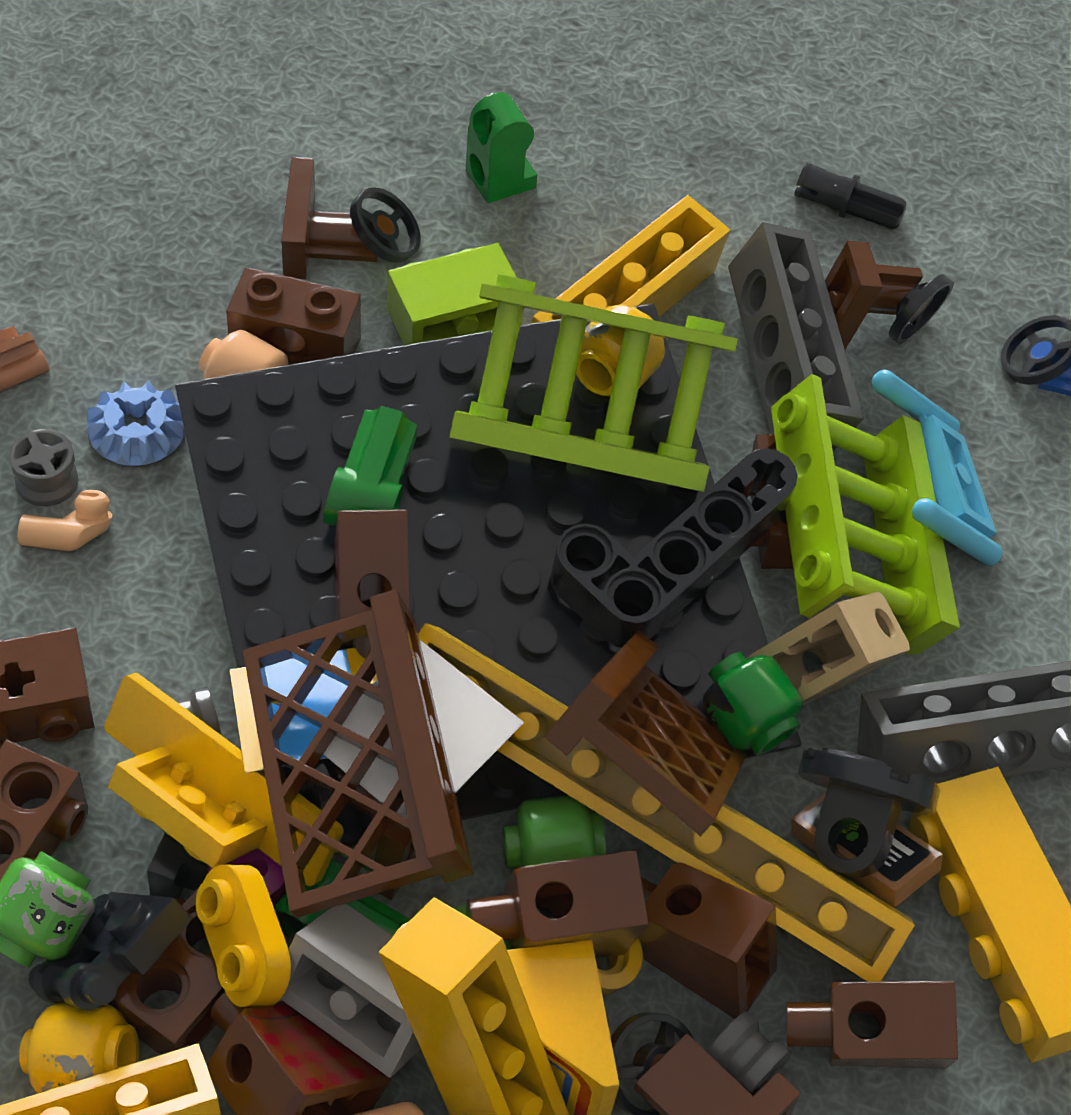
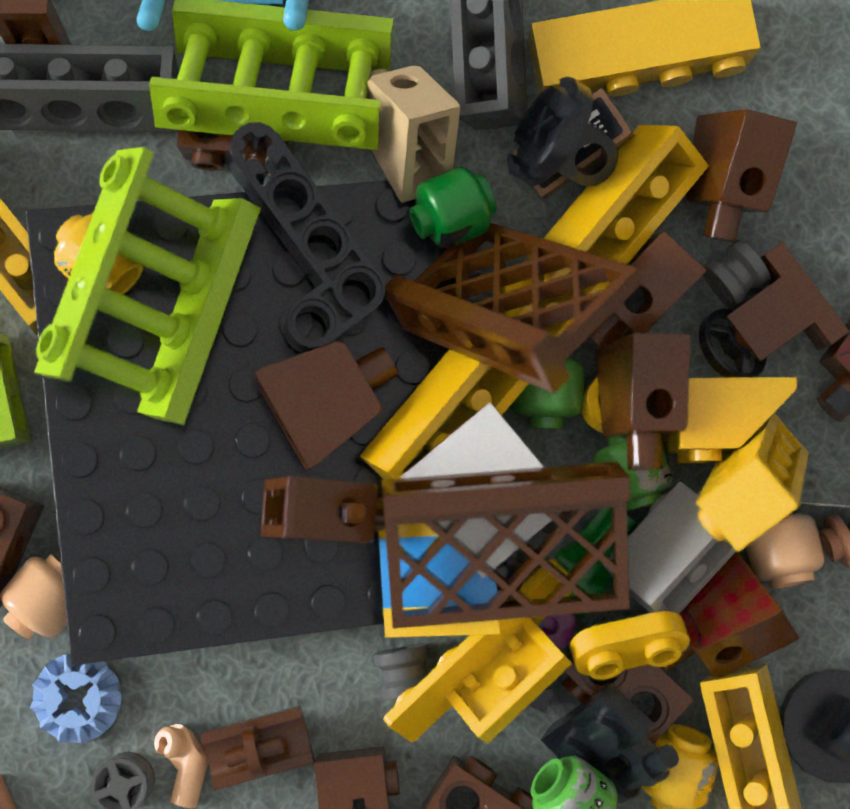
camera: 75 degrees left, 30 degrees up
(91, 584) = (257, 747): none -> reddish brown hips
(374, 465) = (217, 501): green piece -> none
(500, 585) = (324, 396): none -> reddish brown torso

